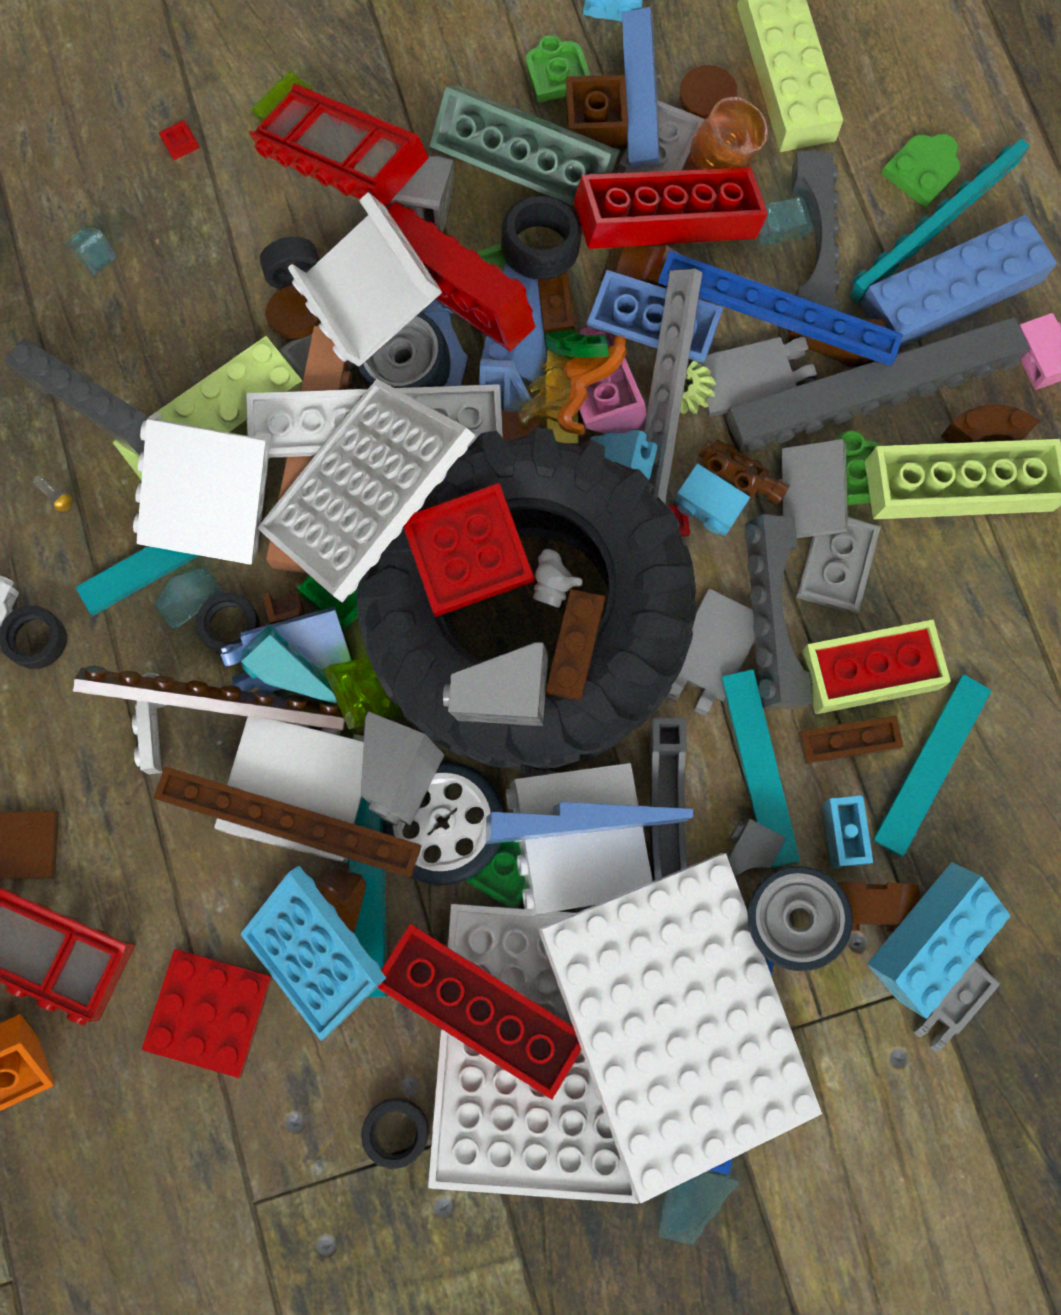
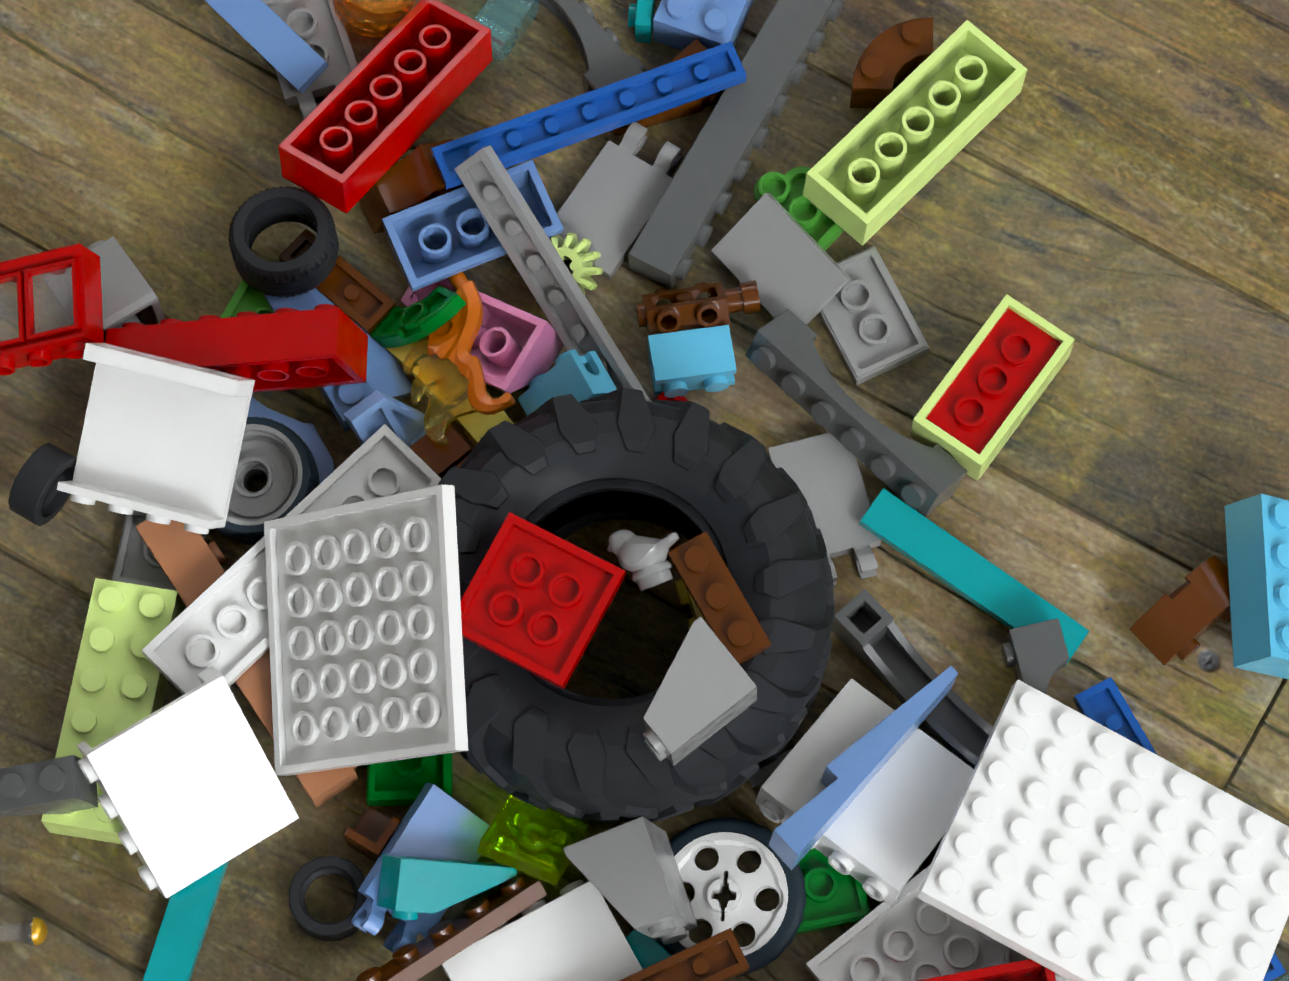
camera: 40 degrees left, 5 degrees down
(185, 596) = (260, 911): clear light blue slope -> none
(289, 314) = (90, 534): reddish brown tile -> none
(517, 144) = (171, 164): sand green brick -> none
(551, 64) = (124, 51): bright green plate -> none
(598, 108) = (212, 64): reddish brown brick -> none
(816, 895) = (1146, 646): light grey wheel -> none
(847, 832) = (1107, 564): medium azure brick -> none
(851, 739) = (1032, 475): reddish brown plate -> none
(931, 766) = (1127, 434): teal tile -> none

